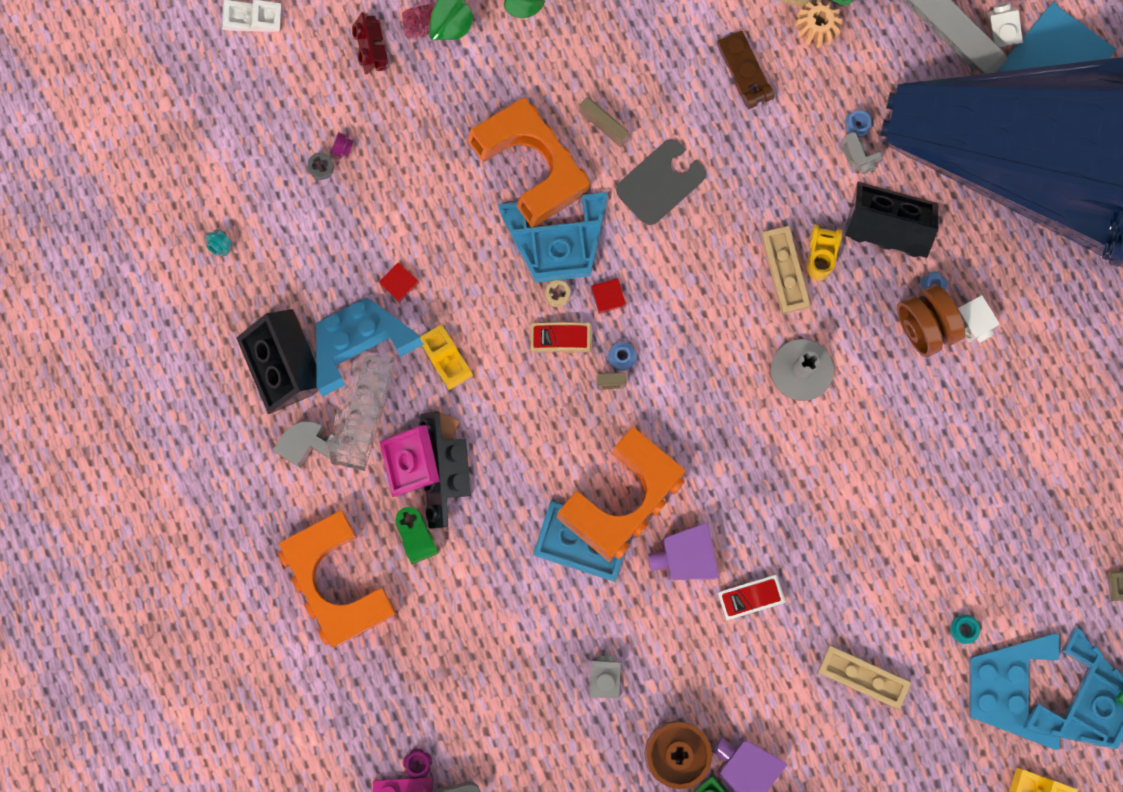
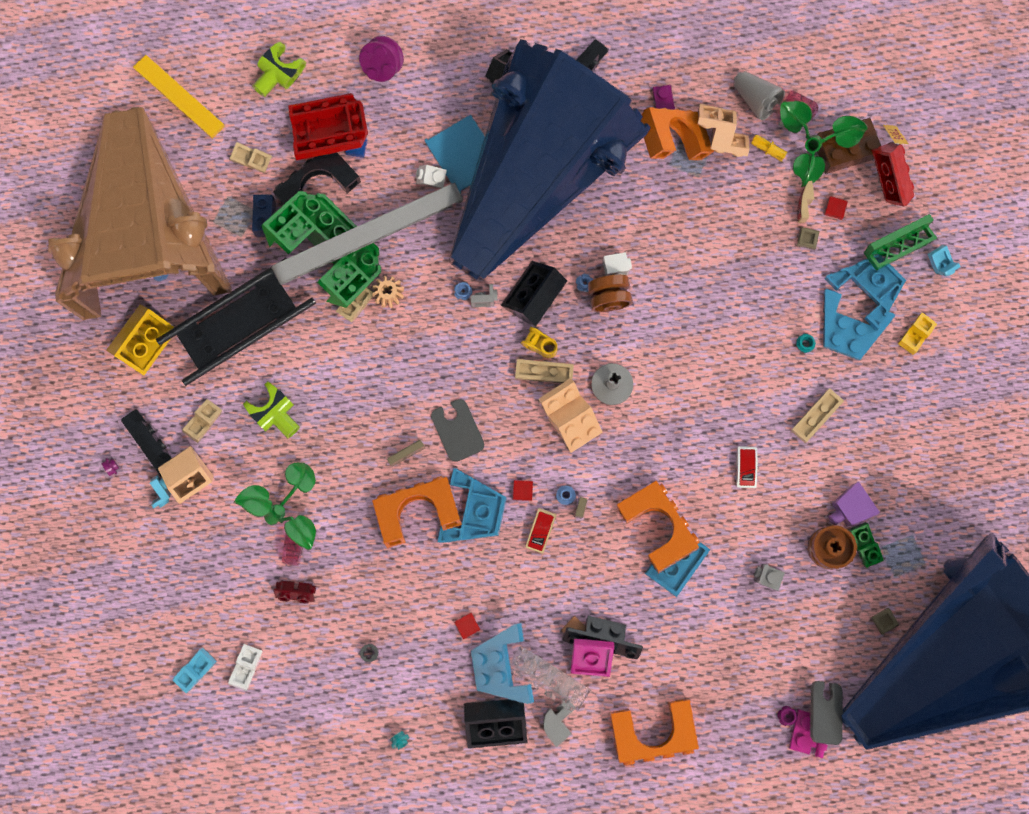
camera: 70 degrees left, 0 degrees up
(342, 145) = (360, 633): magenta plate -> none
(416, 540) = (643, 668): green piece -> none
(445, 357) = (528, 611): yellow slope -> none
(561, 300) = (504, 523): tan bush -> none
(687, 555) = (708, 498): medium lavender torso -> none
(735, 323) = (570, 415): none -> light nougat bracket
(745, 69) = (401, 349): reddish brown plate -> none

